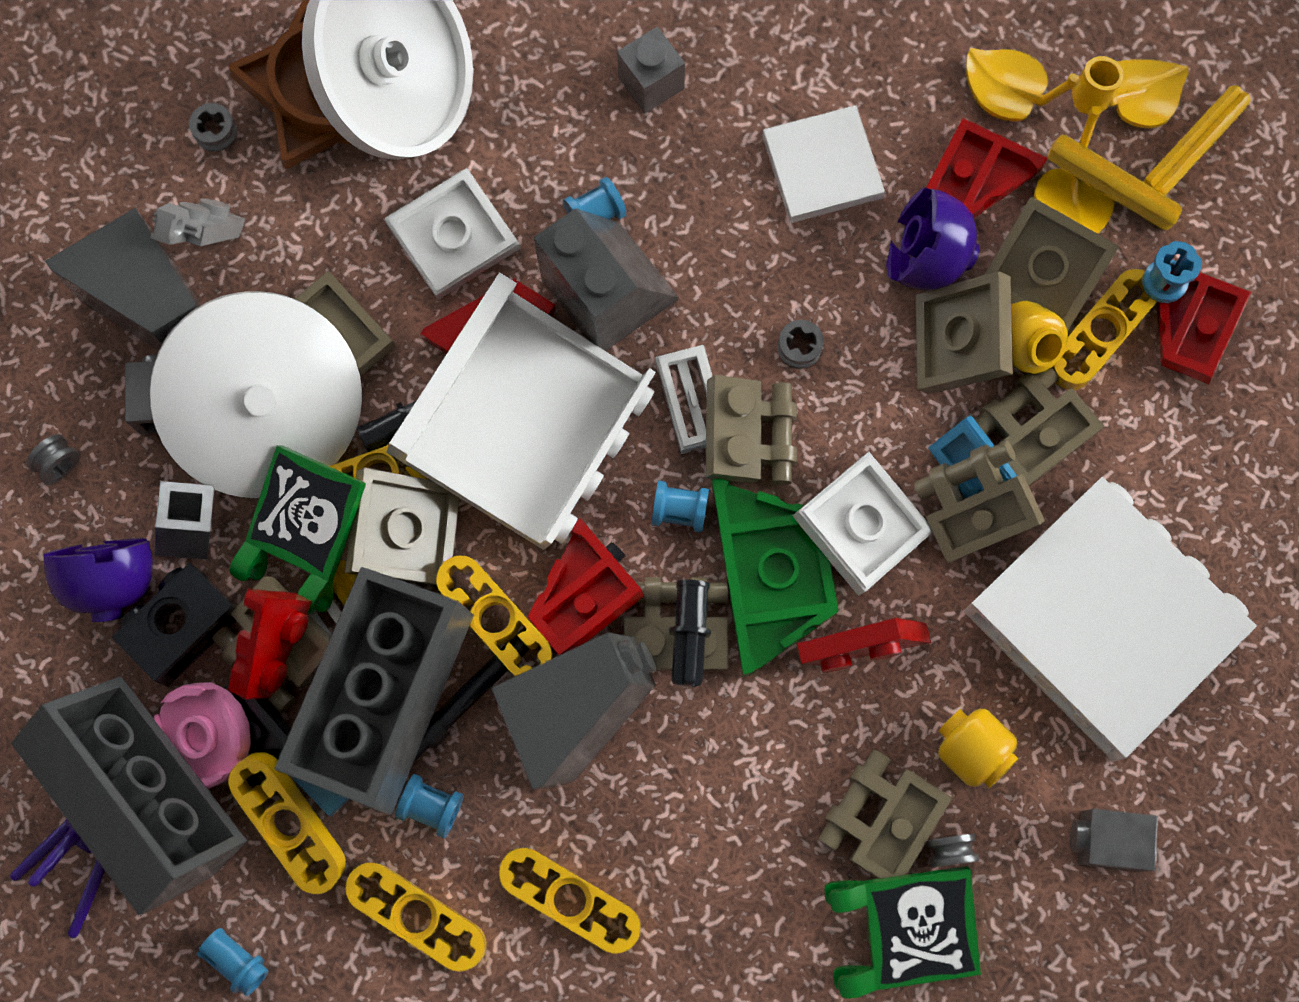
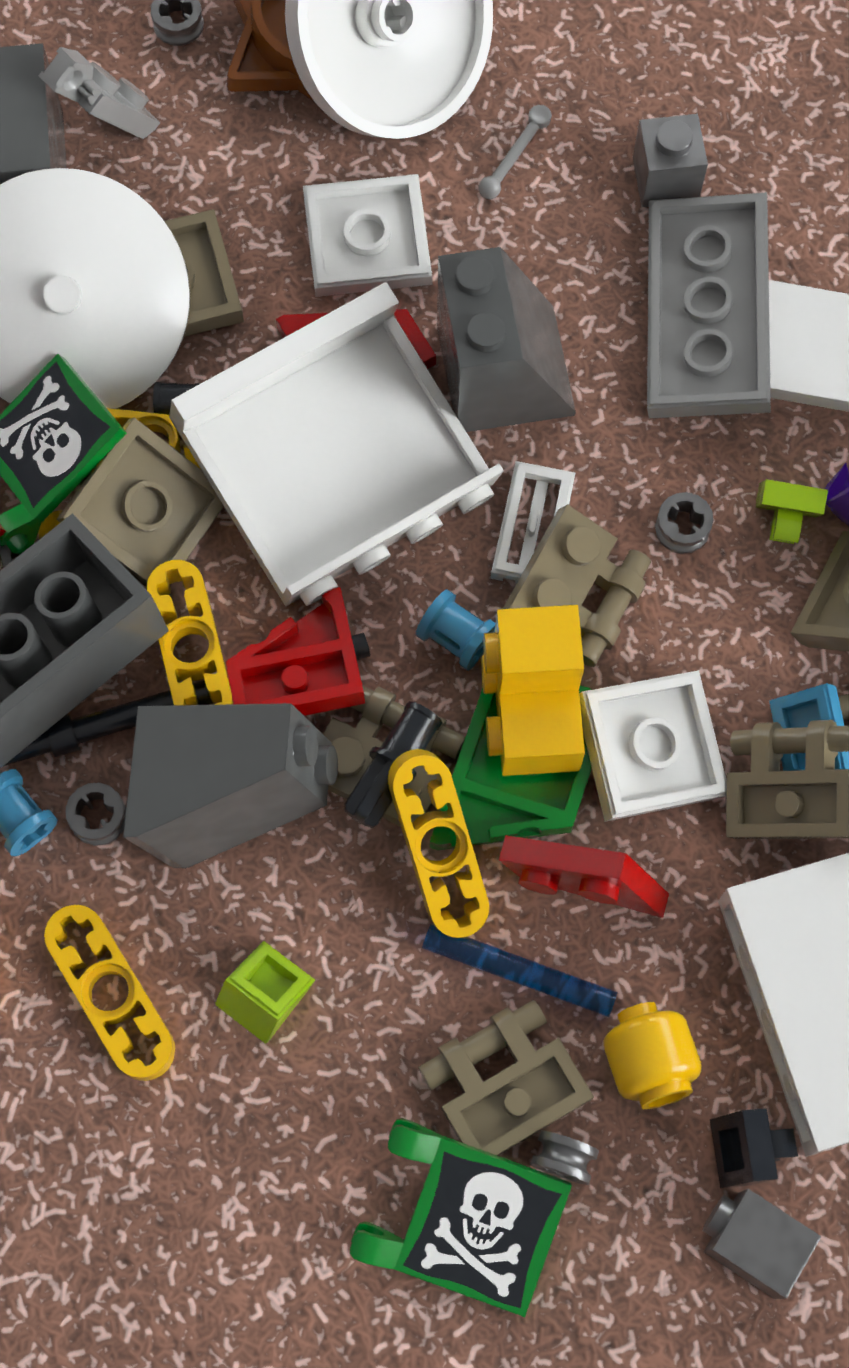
camera: 25 degrees right, 5 degrees down
(497, 761) = (79, 824): none -> flat silver bush
(532, 78) = (538, 118): none -> light grey hinge
(601, 201) = (544, 271): dark azure bush -> none
(679, 841) = (263, 991): none -> lime slope
(731, 668) = (469, 882): none -> yellow beam
(735, 169) = (708, 306): none -> light grey tile
(766, 525) = (536, 674): none -> yellow brick
(852, 732) = (521, 971): none -> clear blue bar
(870, 296) = (789, 506): none -> lime tile
(1075, 778) = (748, 1148): none -> black tile

